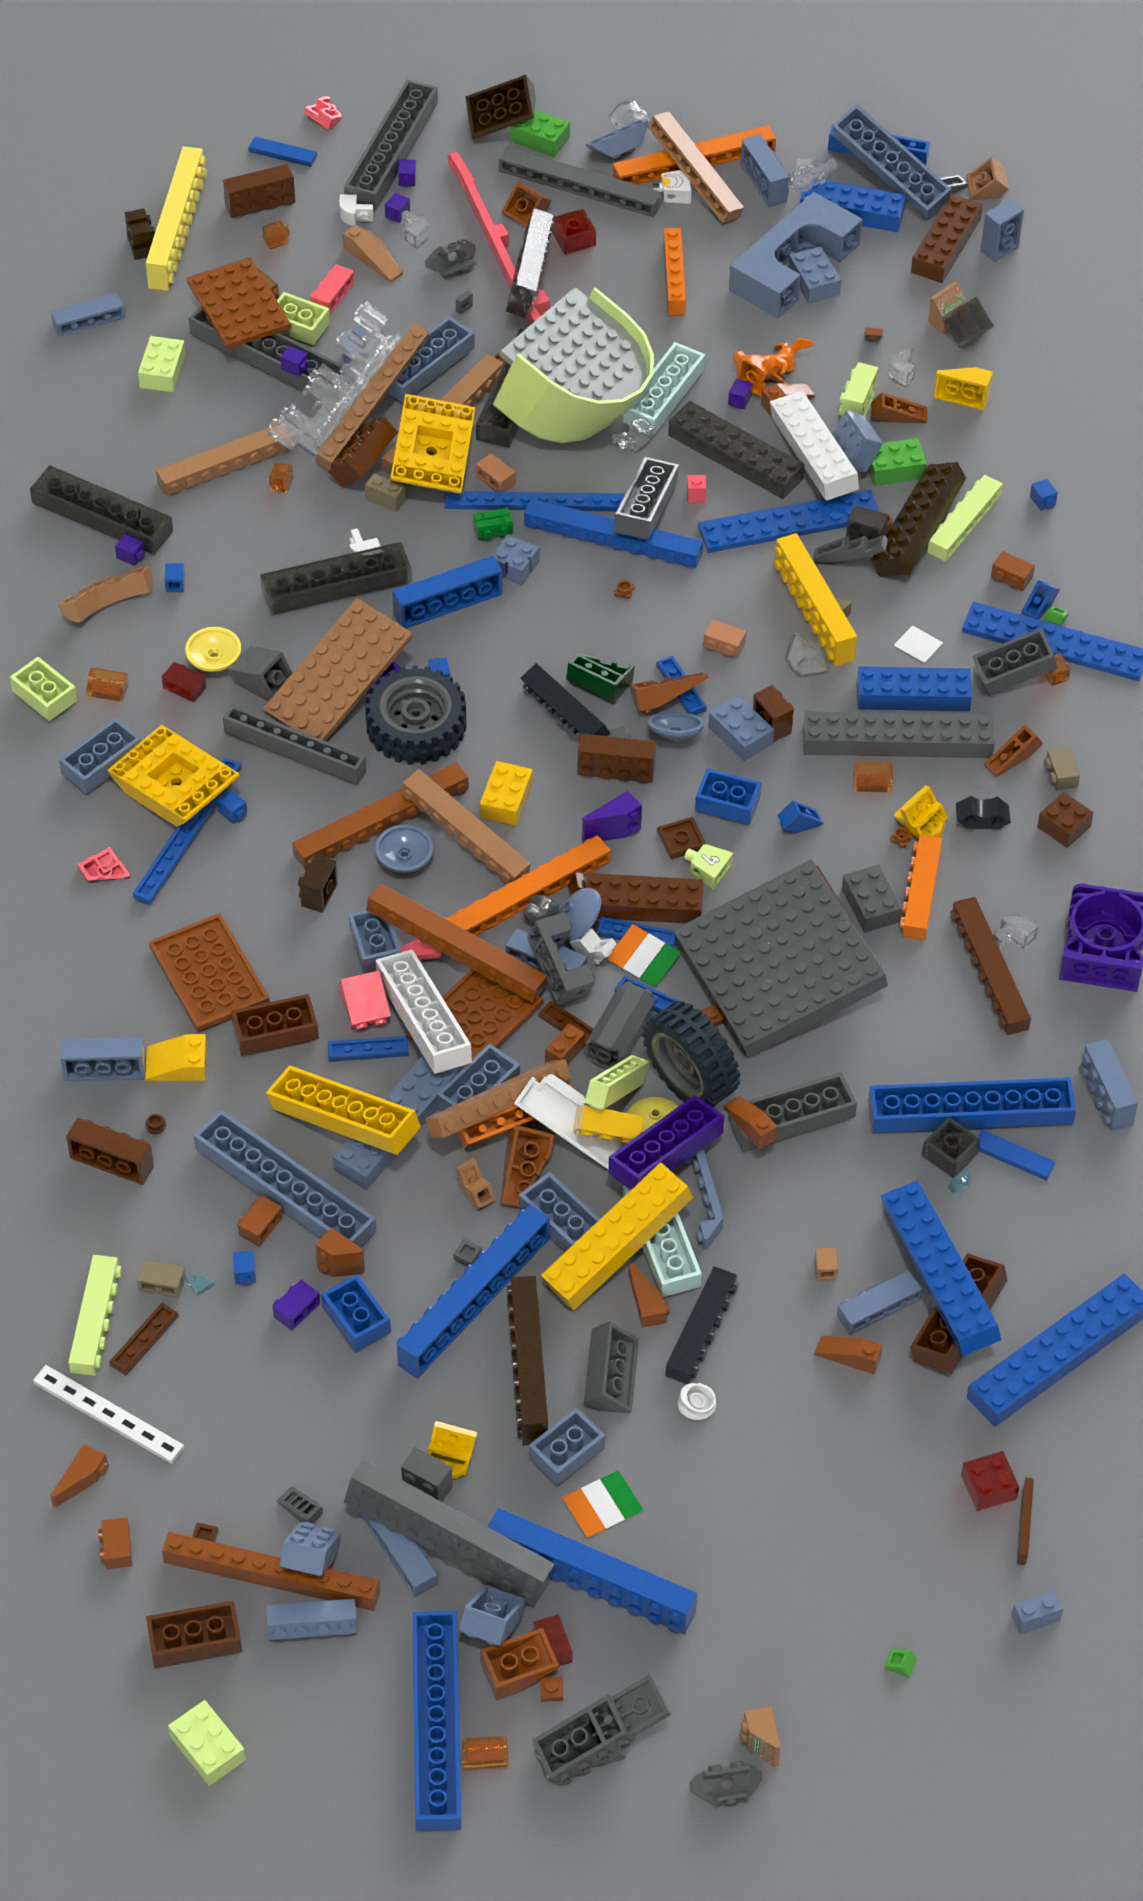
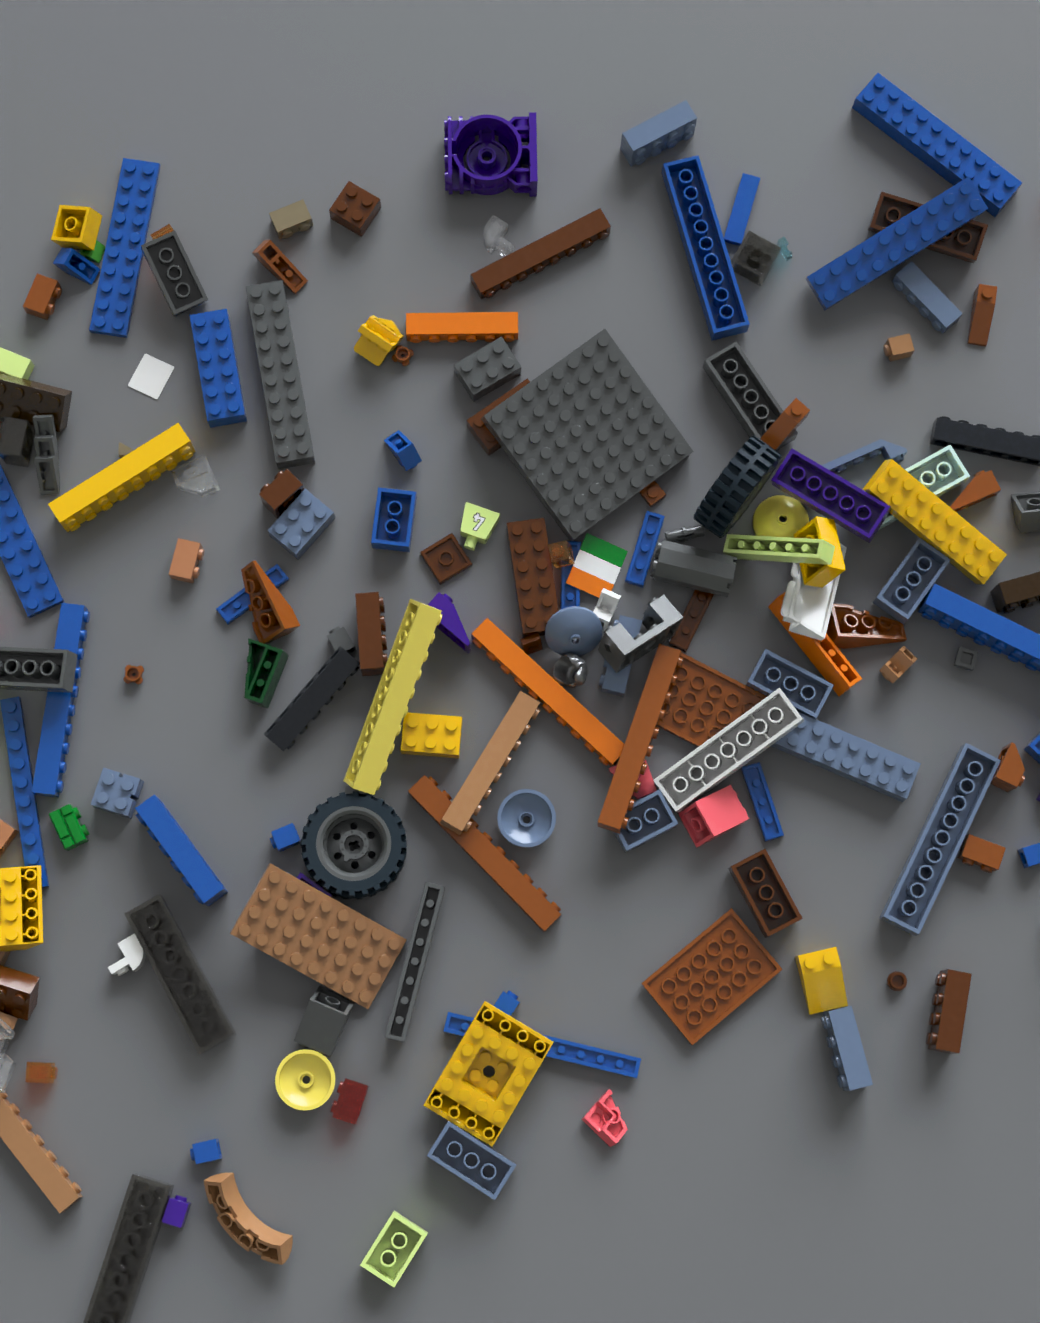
camera: 105 degrees left, 25 degrees up
(107, 684) = (370, 1183): clear orange brick -> none
(318, 883) = (589, 892): dark brown brick -> none
(343, 1110) = (863, 798): yellow brick -> none
(385, 492) = (44, 955): dark tan brick -> none
(491, 1101) = (812, 659): medium nougat brick -> none
(547, 751) = (392, 697): none -> light yellow brick
(566, 1045) = (724, 616): dark orange brick -> none
(661, 919) = (561, 554): none -> clear orange brick
(676, 725) = (306, 582): sand blue dish -> none
(872, 777) = (337, 391): clear orange brick -> none
(983, 813) = (362, 283): black brick -> none
(1077, 599) = (76, 227): none -> yellow brick

